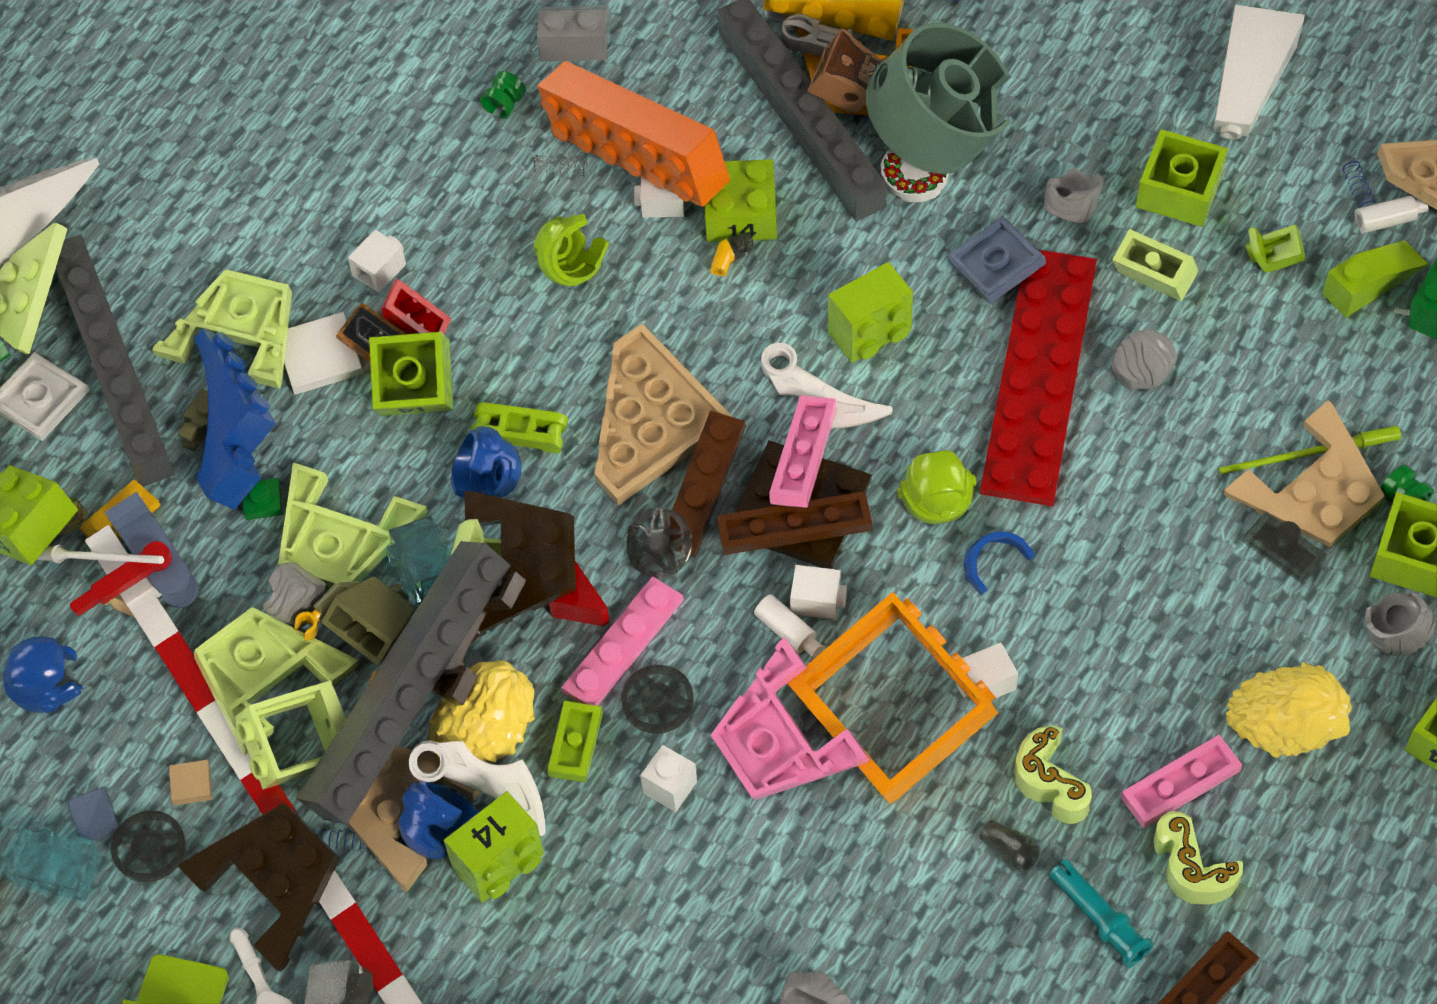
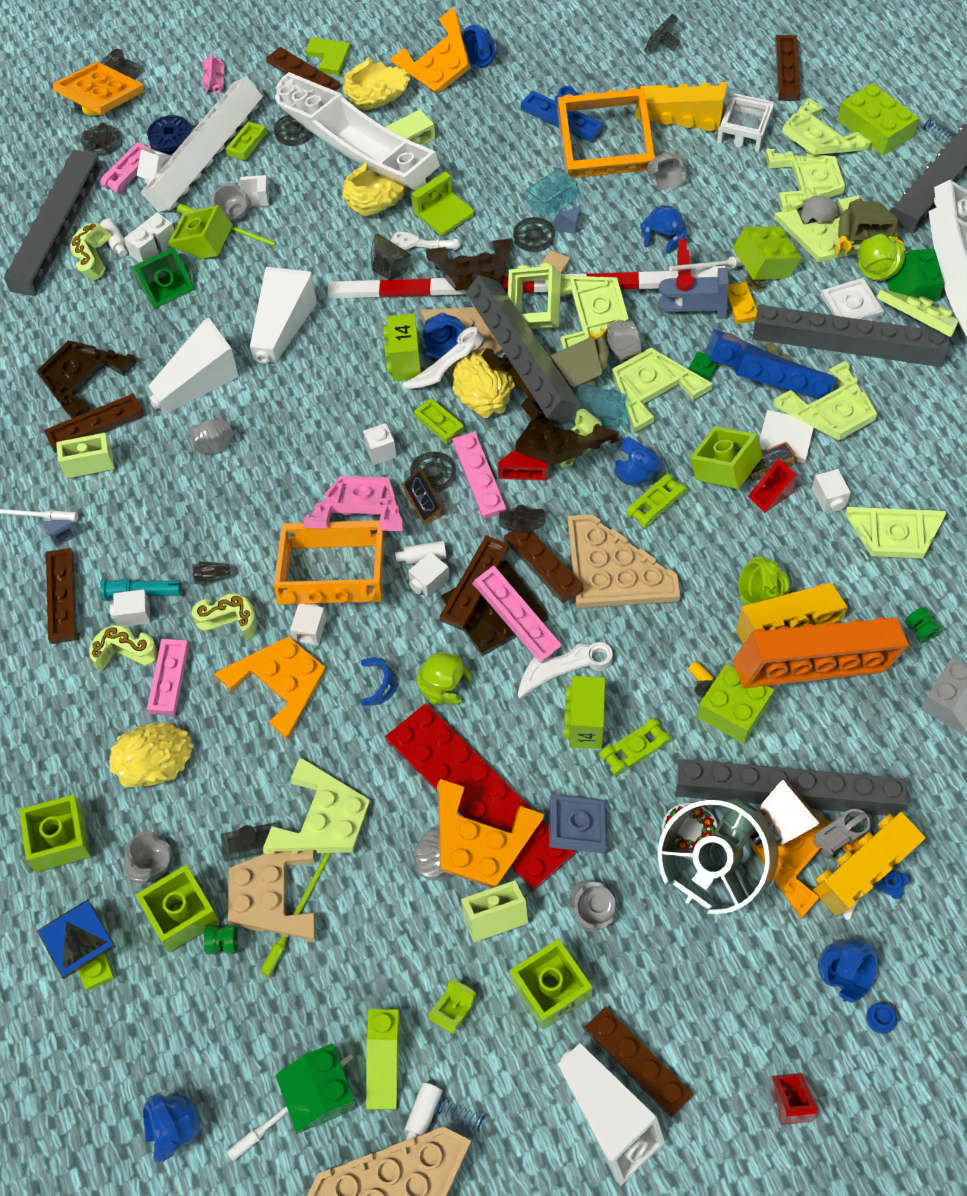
camera: 125 degrees right, 0 degrees up
(388, 178) = (895, 531): none -> yellowish green wing
(612, 211) = (809, 606): none -> yellow wedge
(709, 675) = (423, 497): none -> slope
(856, 262) = (635, 747): none -> lime plate
(1062, 663) = (286, 671): none -> light orange wing
(1108, 307) = (474, 848): none -> light orange wing
(1137, 894) = (130, 608): none -> white brick
(1181, 81) = (638, 1062): none -> reddish brown plate
(1193, 482) = (332, 819): none -> yellowish green wing

